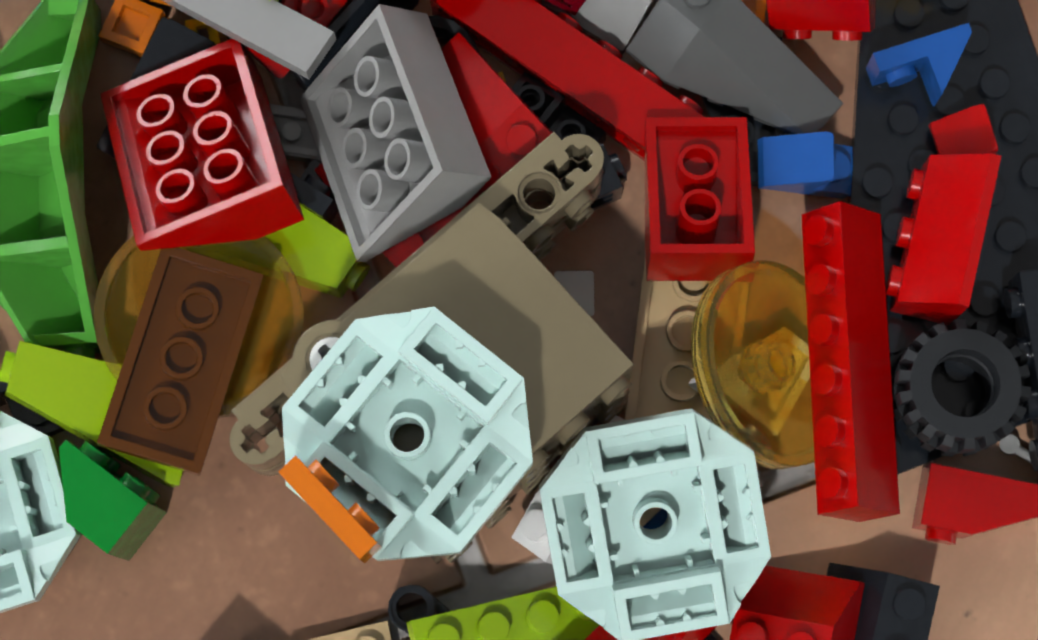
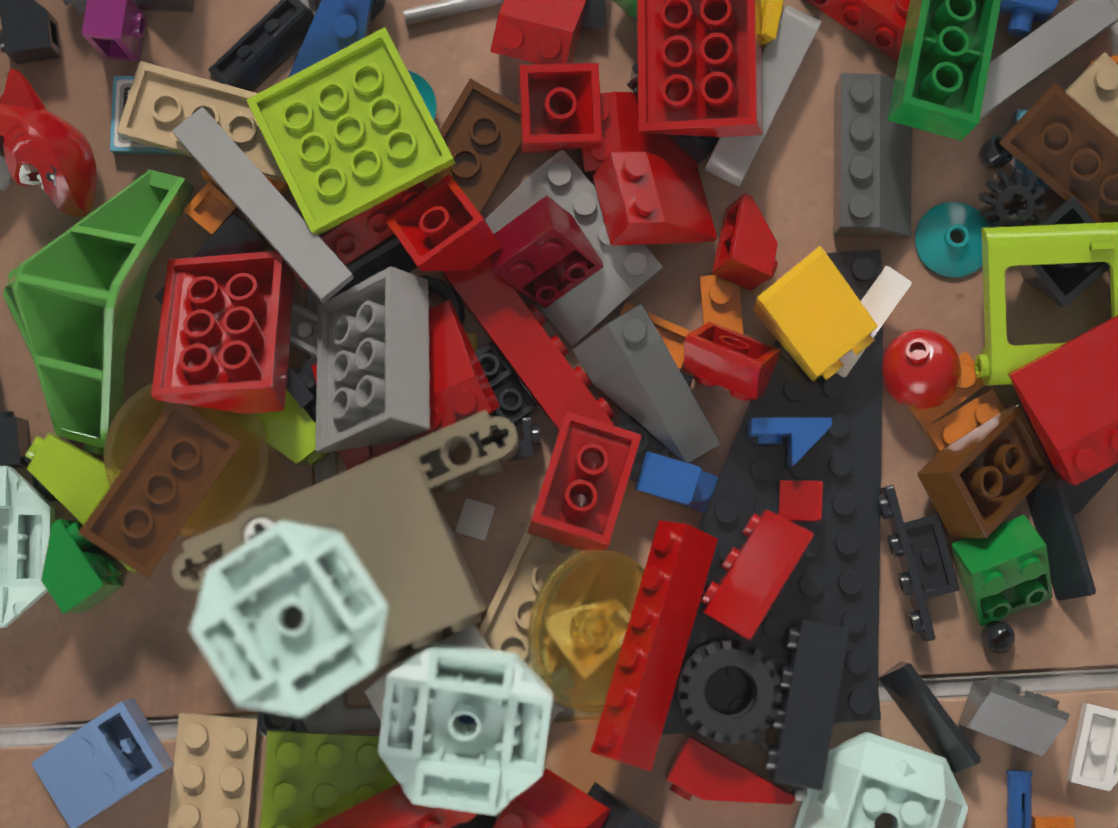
camera: 15 degrees right, 5 degrees up
(316, 488) = (207, 646): orange plate -> none

